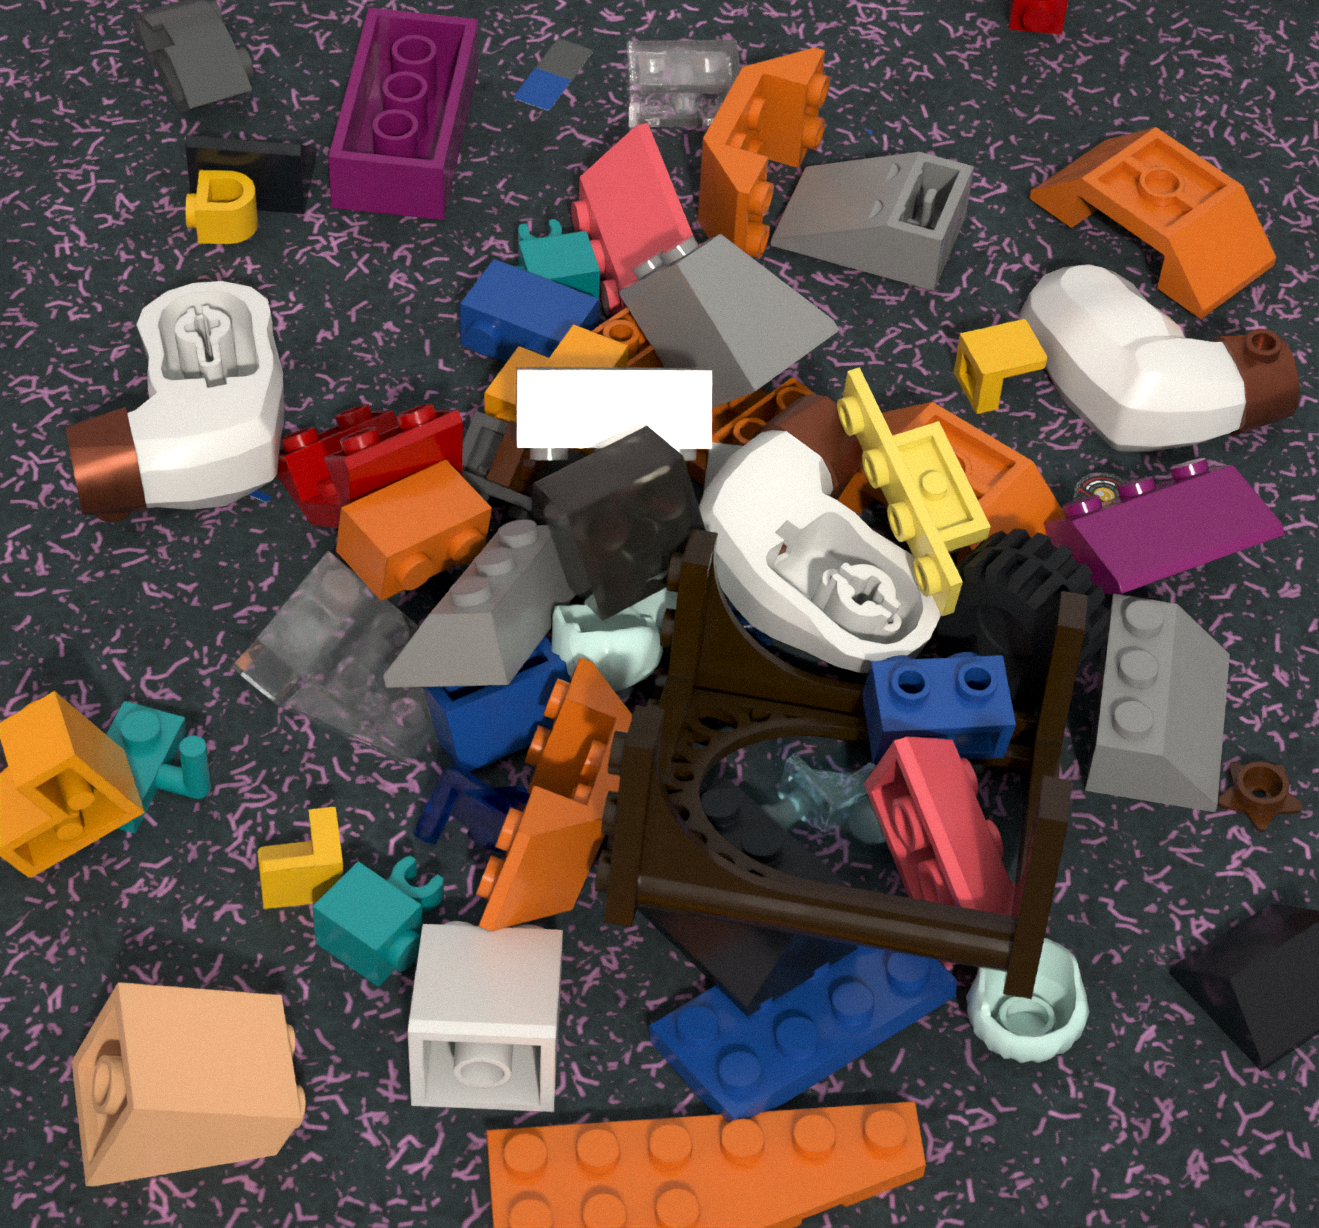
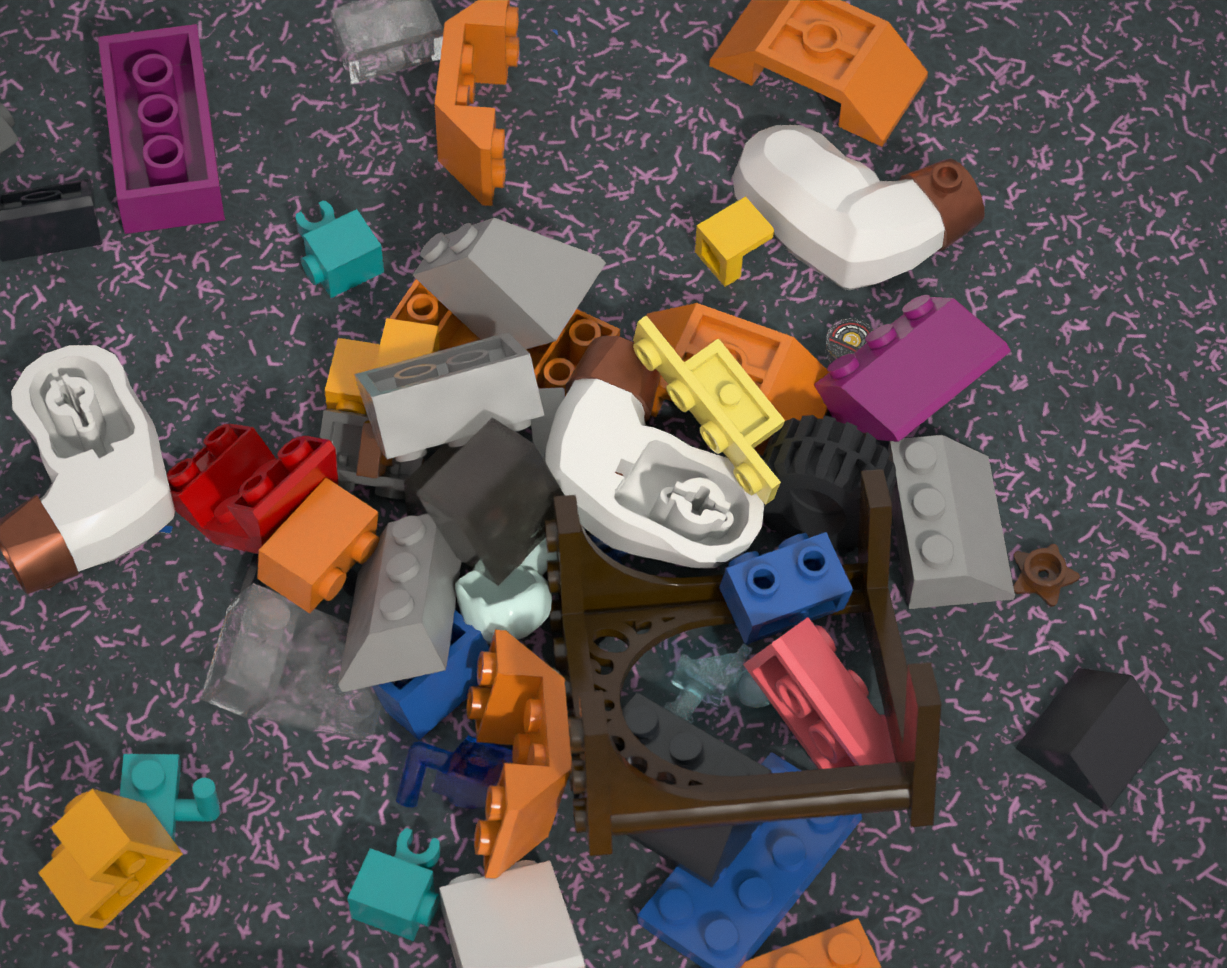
camera: 15 degrees left, 10 degrees up
(222, 208) = (35, 264): yellow plate -> none
(302, 870) = (321, 857): yellow panel -> none
(521, 310) = (333, 304): blue brick -> none
(553, 74) = (267, 44): sticker -> none
(628, 211) = (393, 190): coral slope -> none
(879, 215) = (590, 121): light grey slope -> none
(1035, 1026) = (932, 842): light aqua hair -> none

